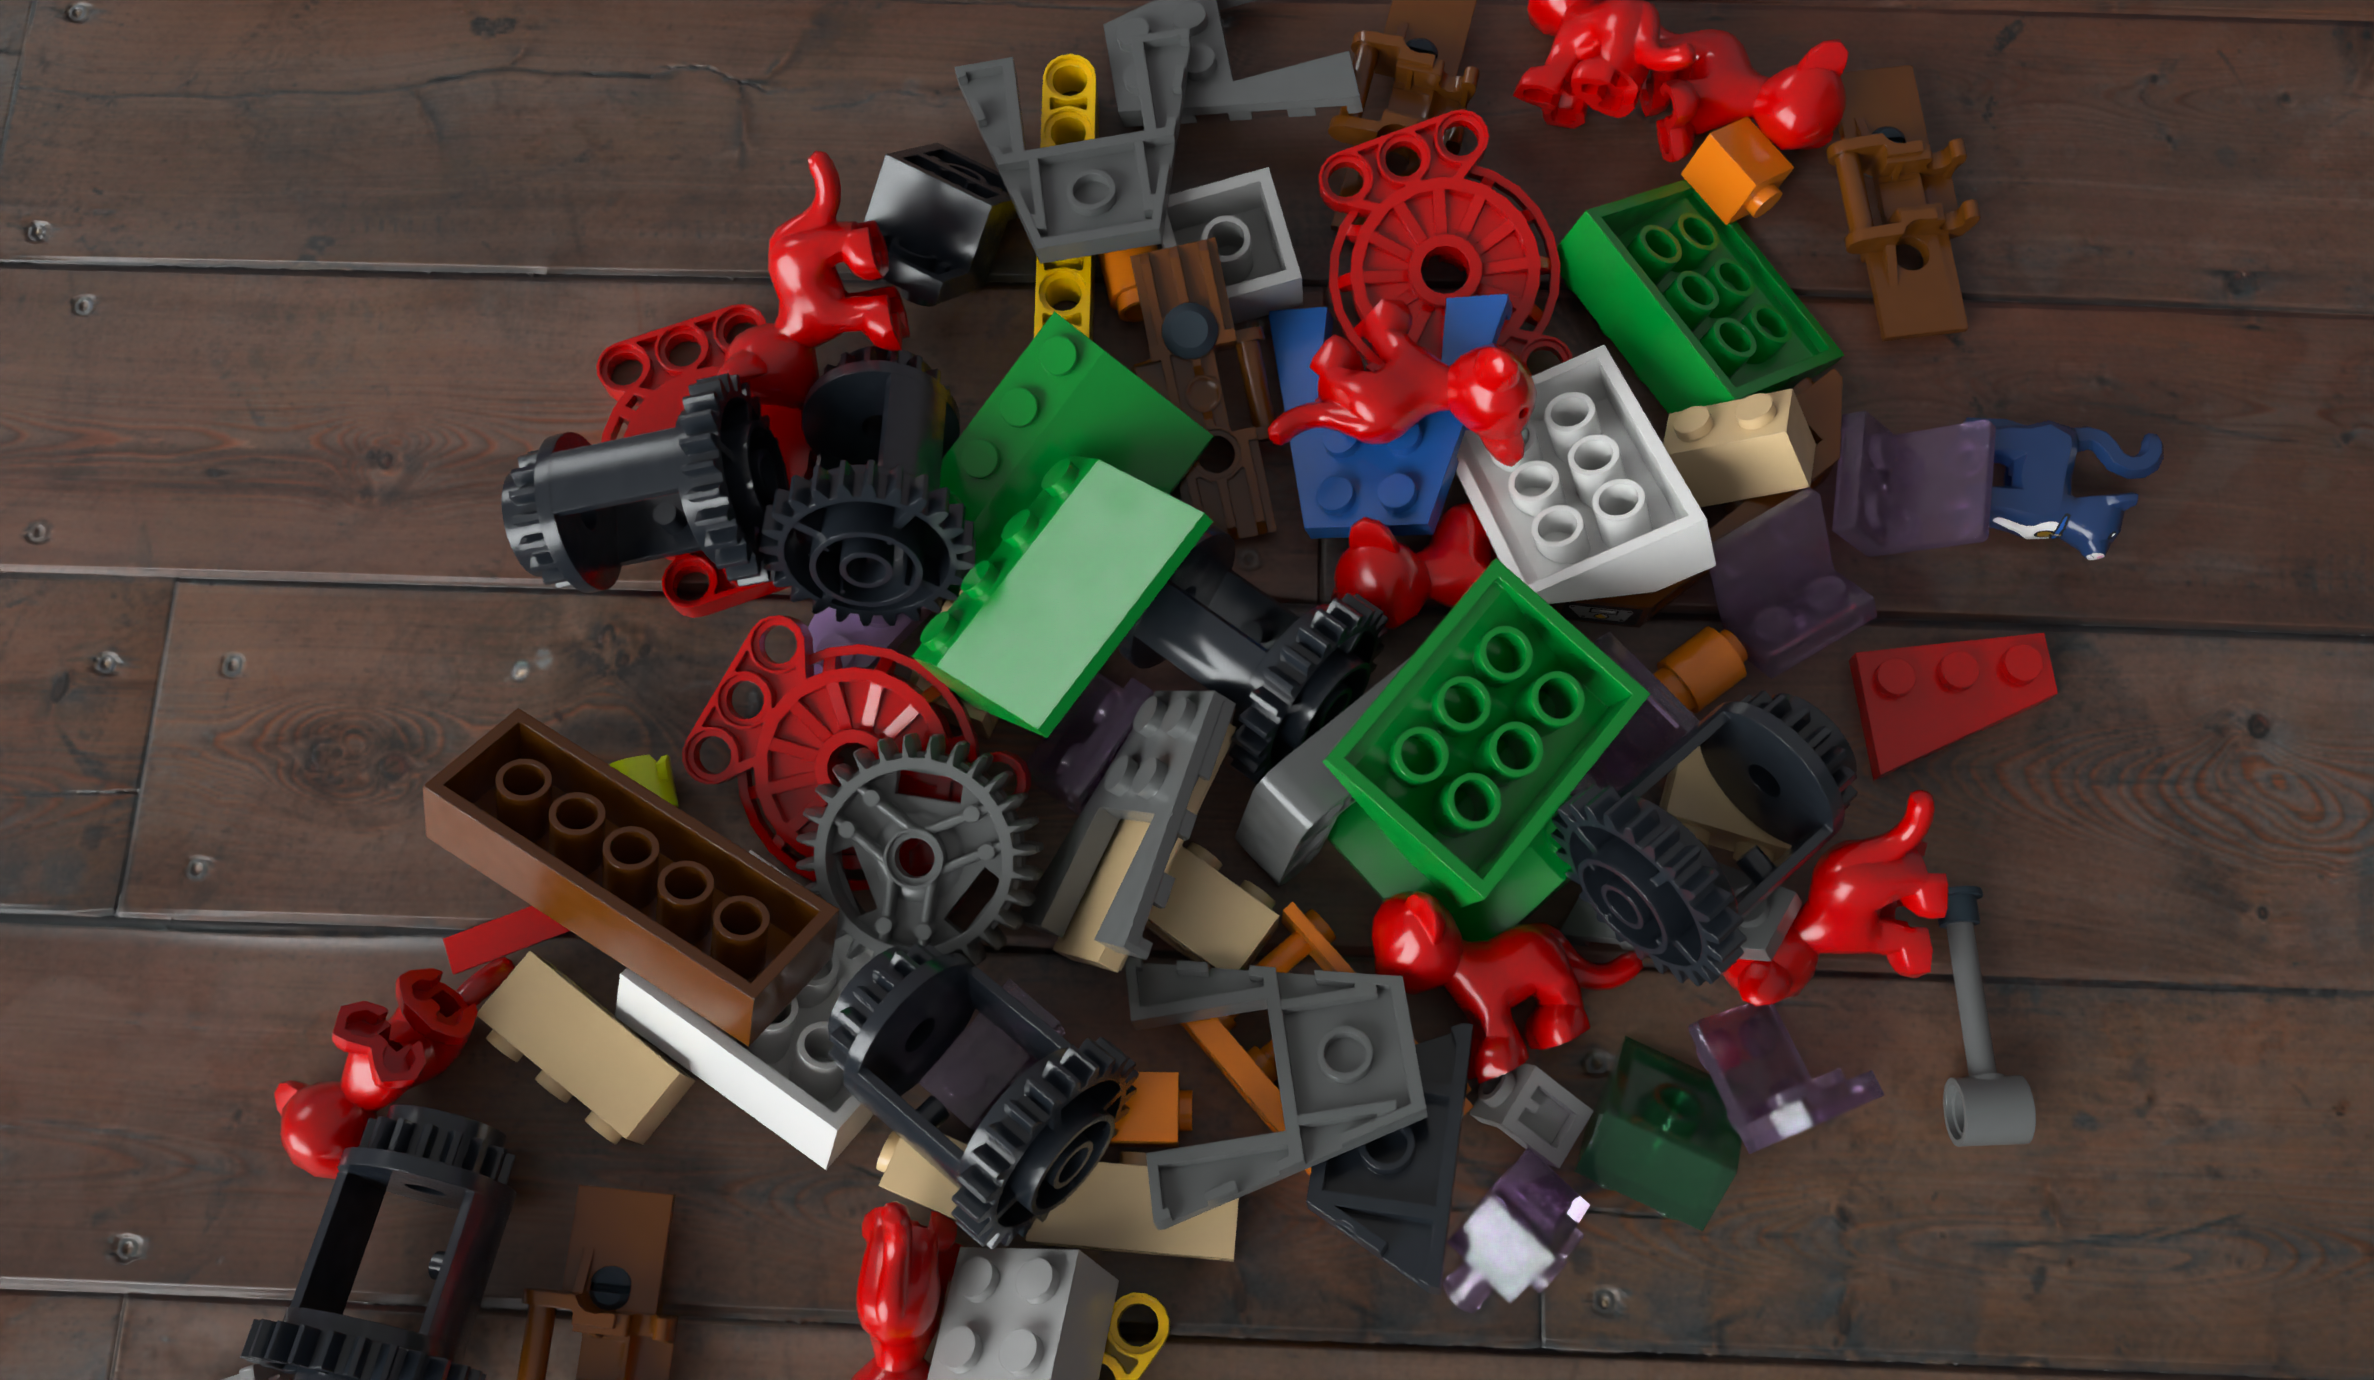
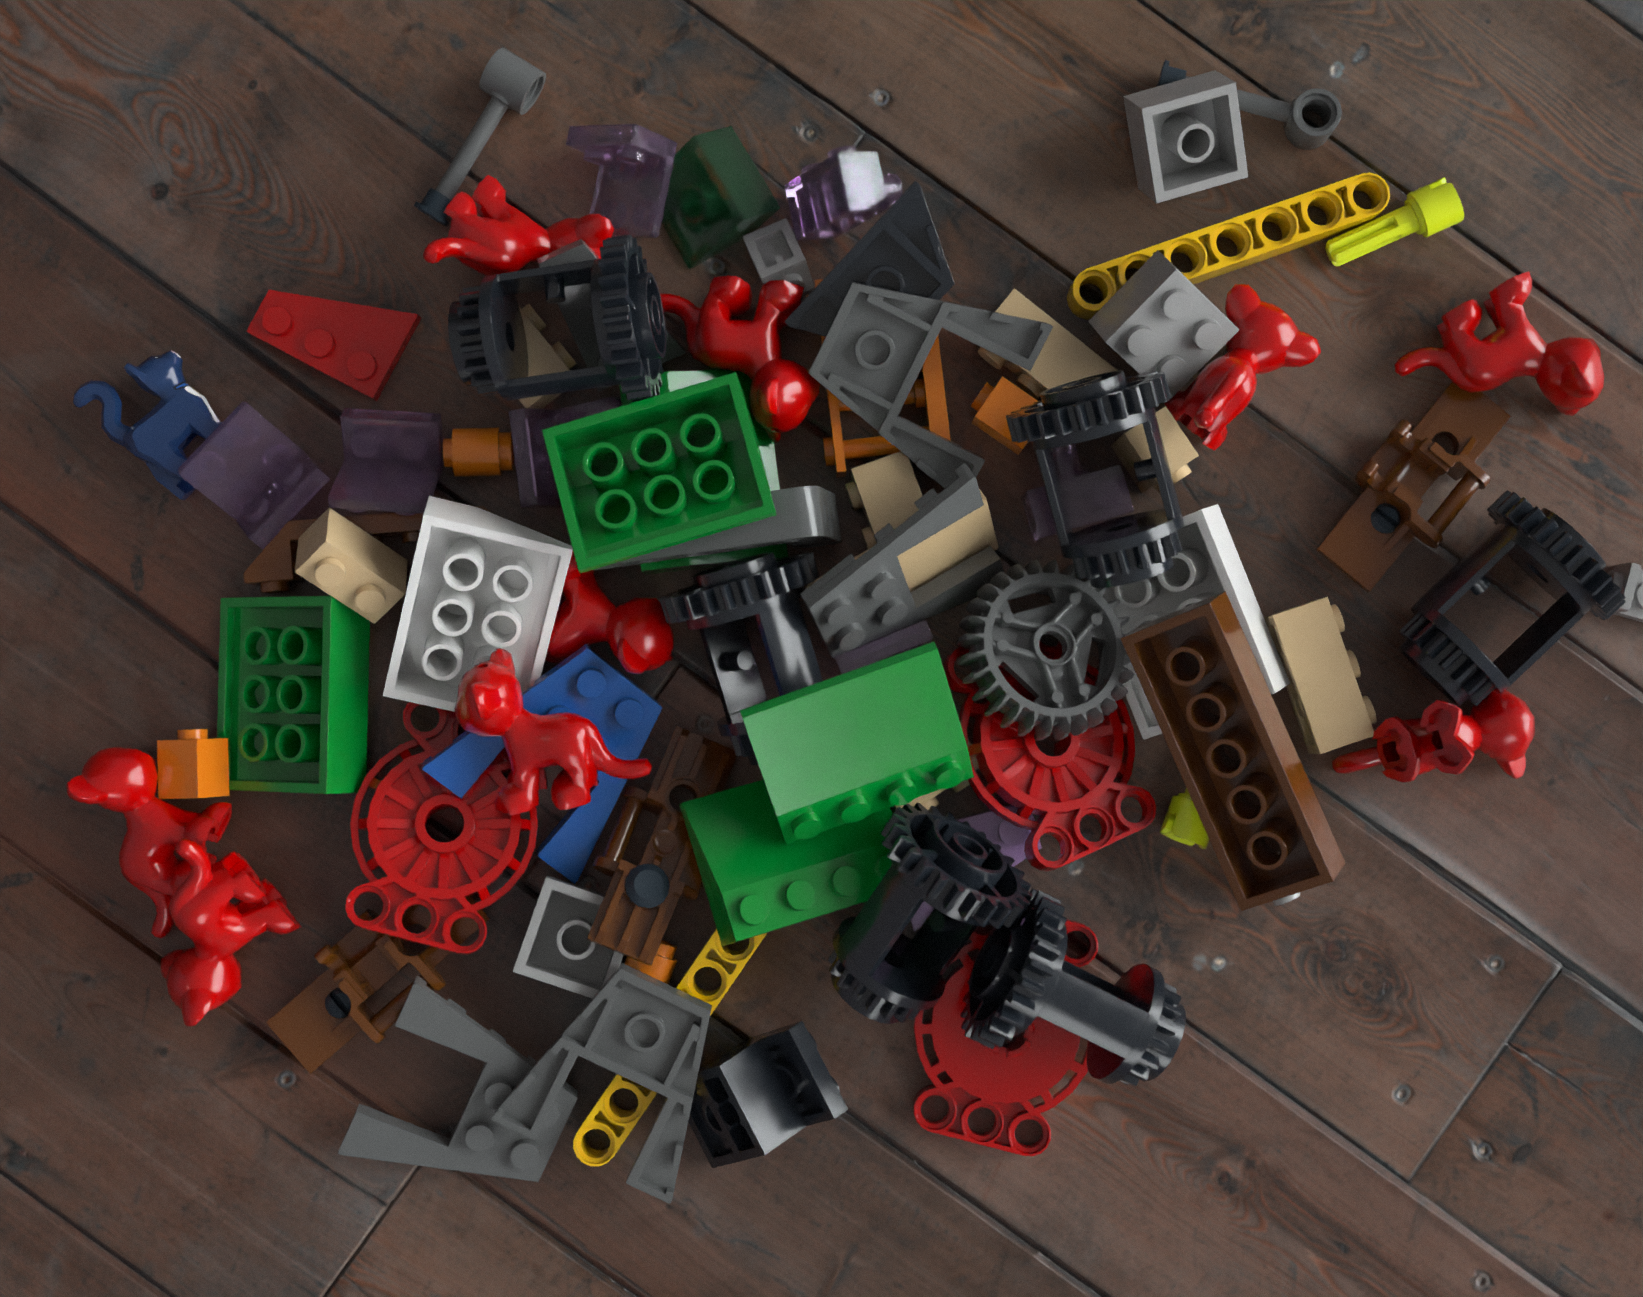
camera: 150 degrees left, 15 degrees up
(500, 938) = (1340, 790): red piece -> none
(813, 302) = (929, 1051): red animal -> none
(1916, 199) = (89, 669): reddish brown piece -> none

